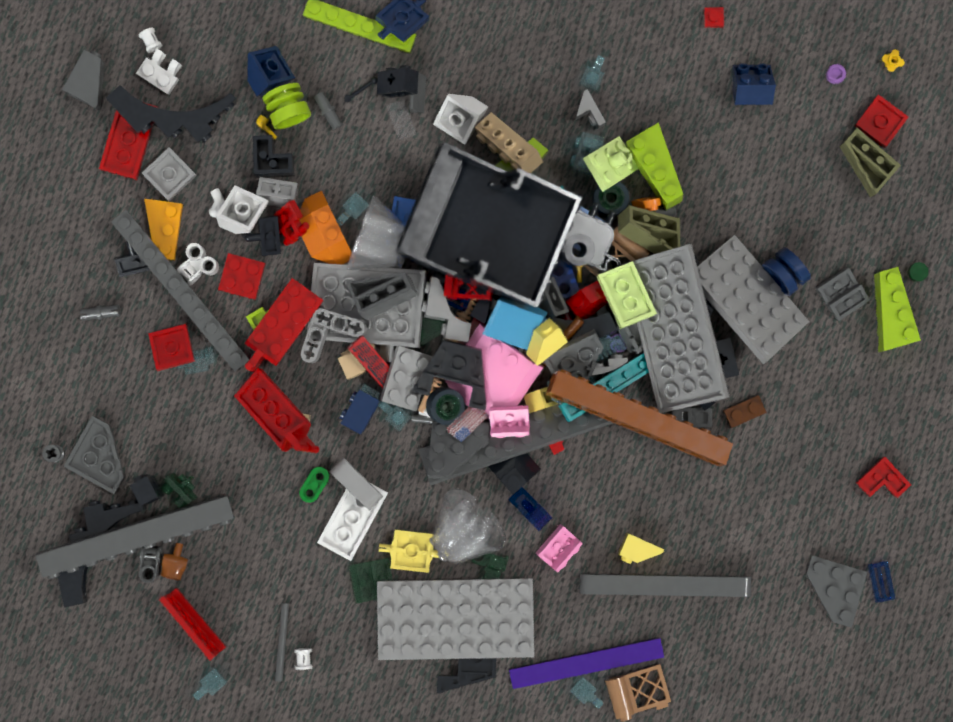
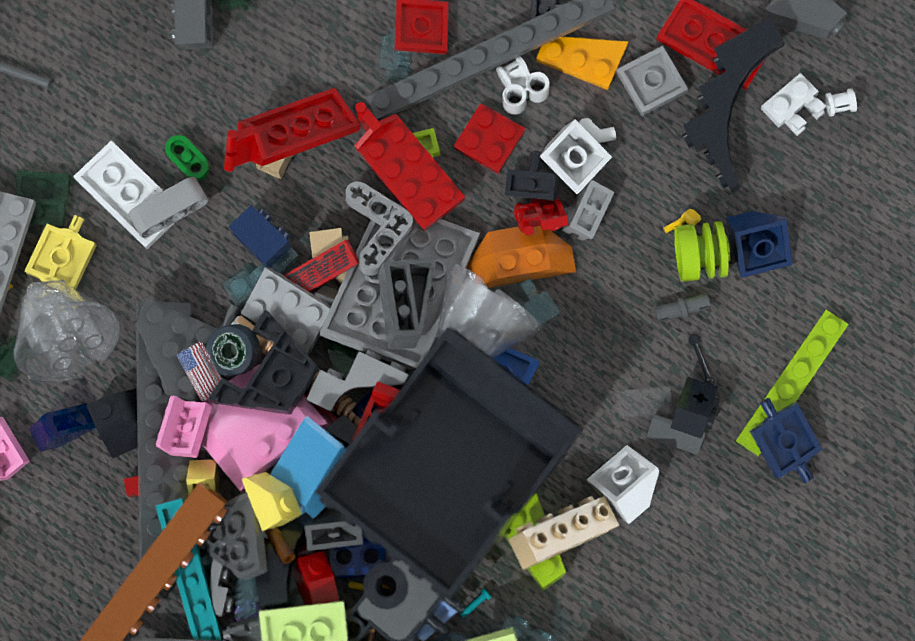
camera: 120 degrees right, 10 degrees down
(267, 162) = (632, 206): black brick -> none

